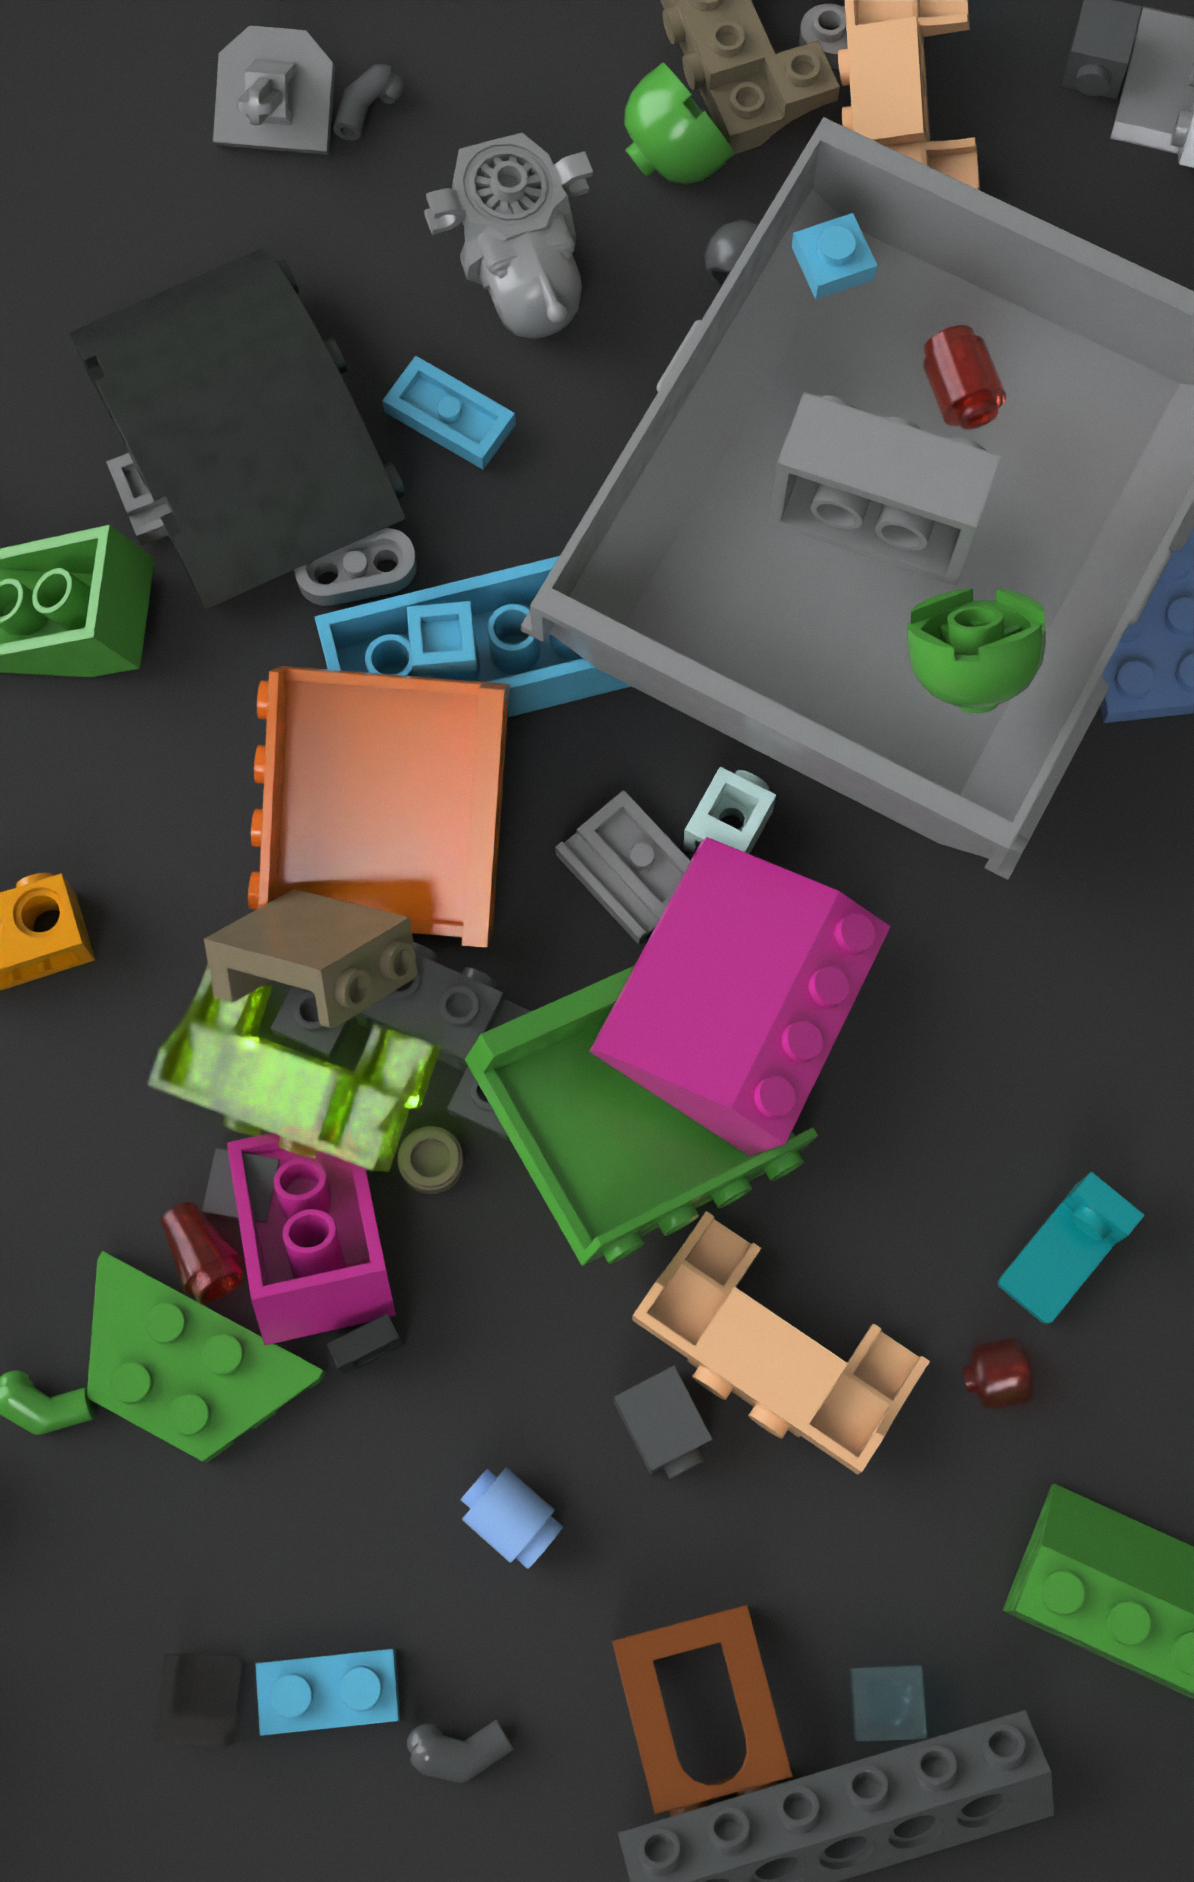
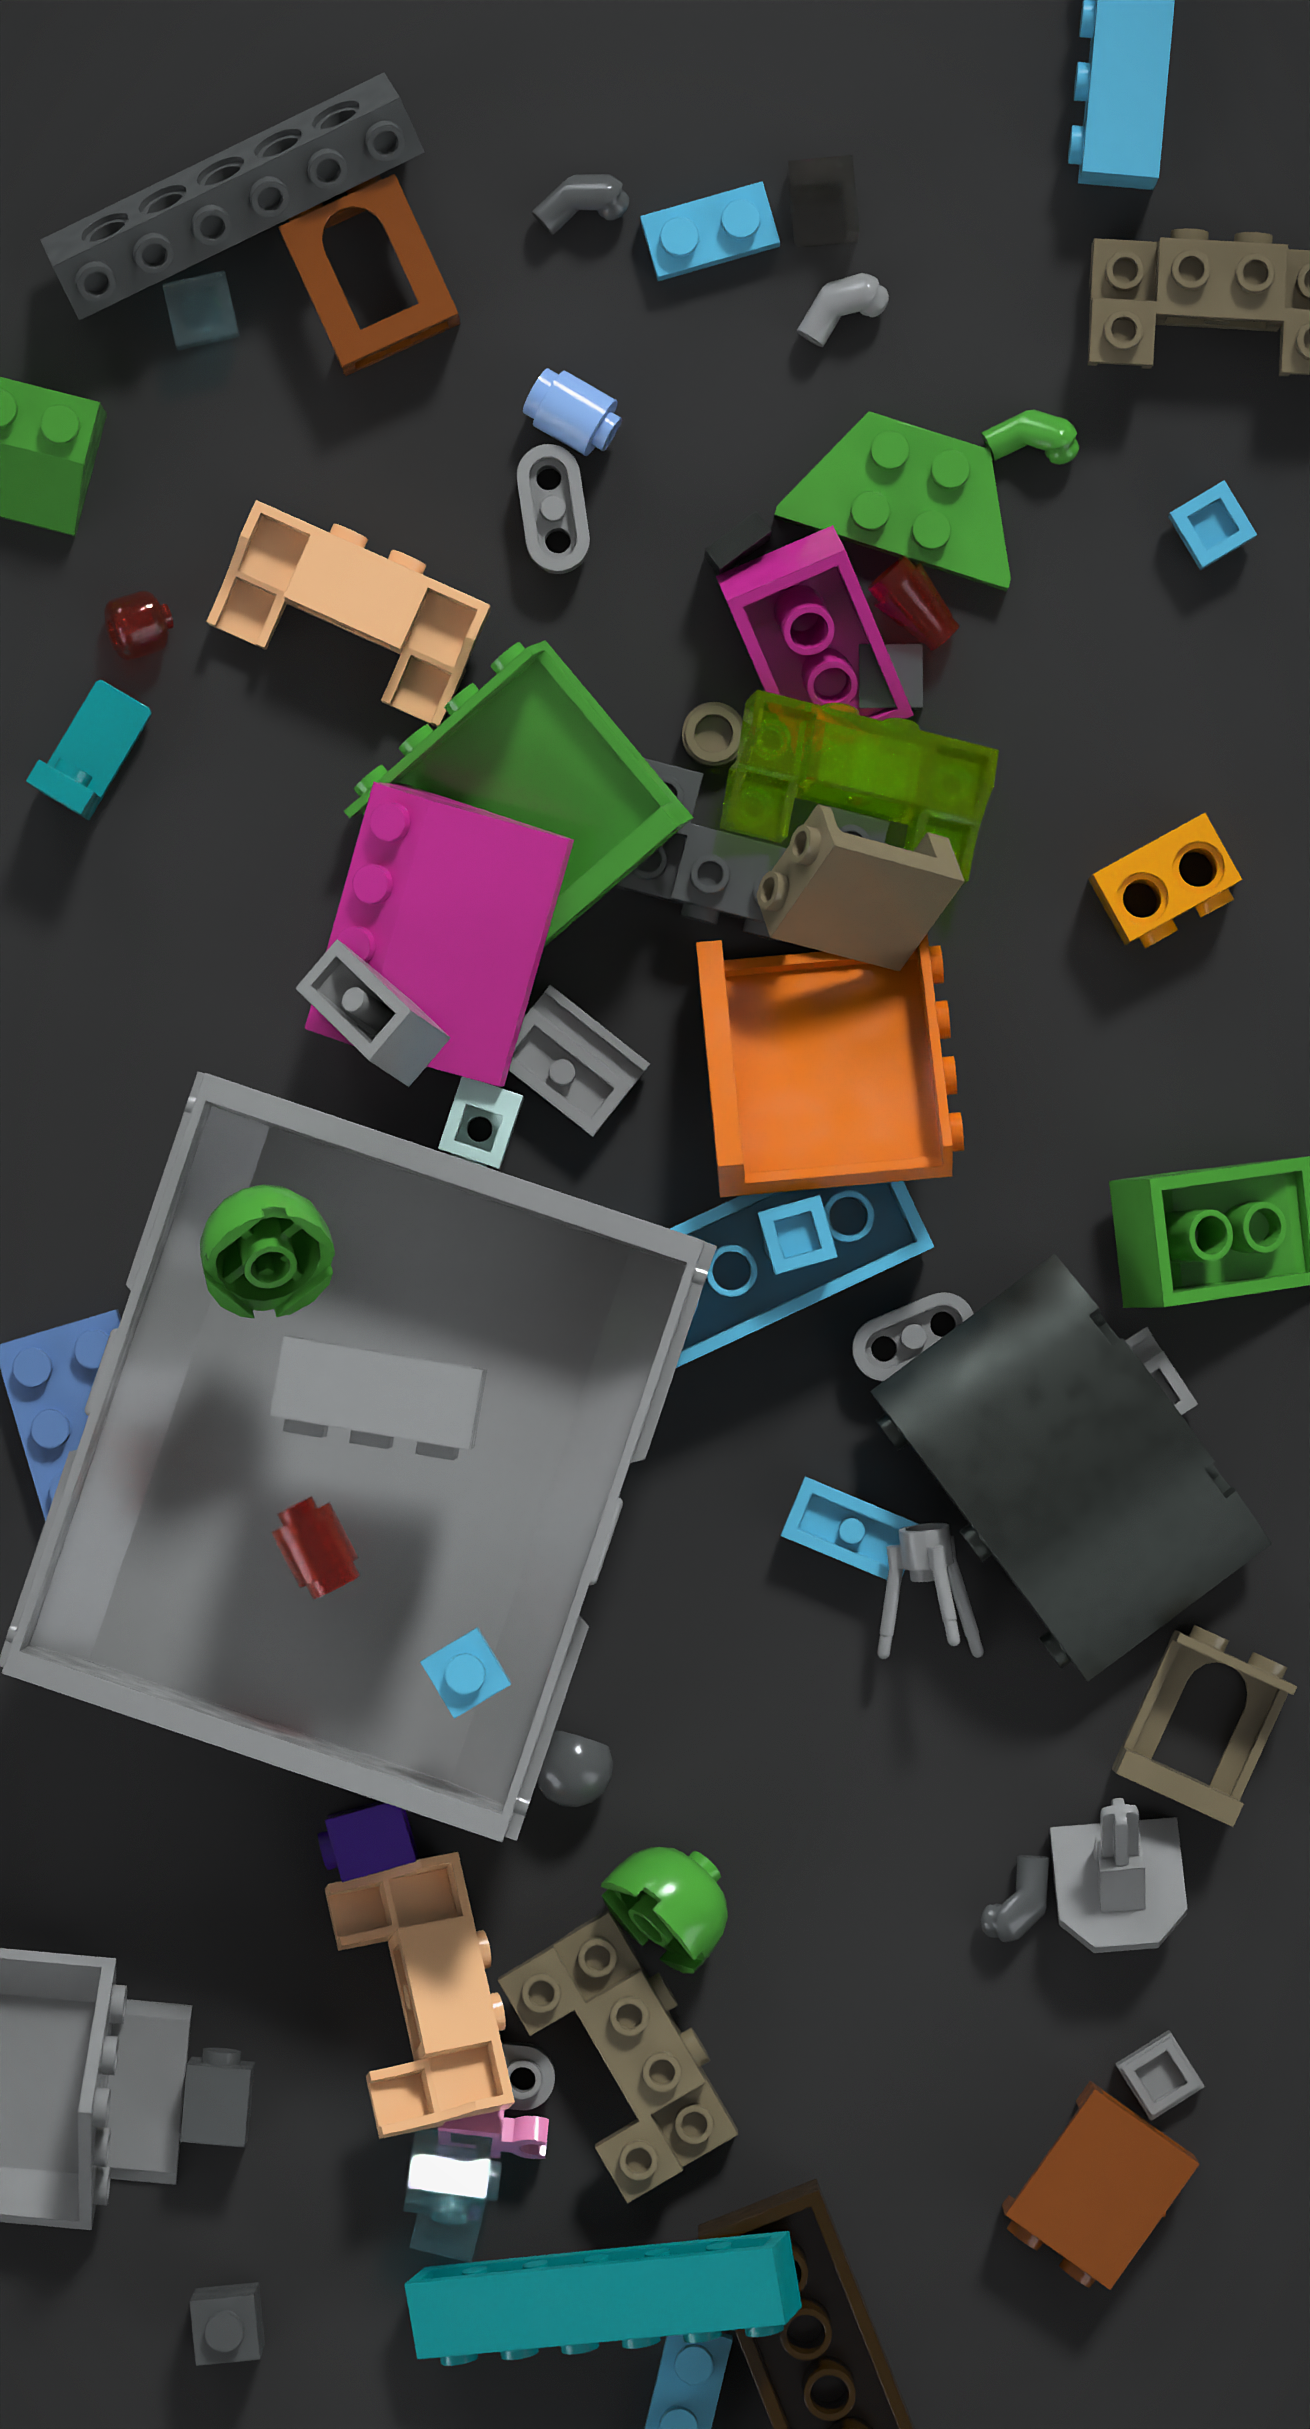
camera: 170 degrees right, 15 degrees up
(175, 149) = (1263, 1704): none -> dark tan panel
(205, 1589) = (840, 298): none -> light grey arm
(381, 360) = (929, 1556): none -> light grey plant
(517, 229) = (812, 1729): light grey helmet -> none
(548, 1417) = (553, 509): none -> light grey plate
(664, 1423) = (445, 520): dark grey brick -> none
(824, 905) = (372, 1013): none -> light grey slope

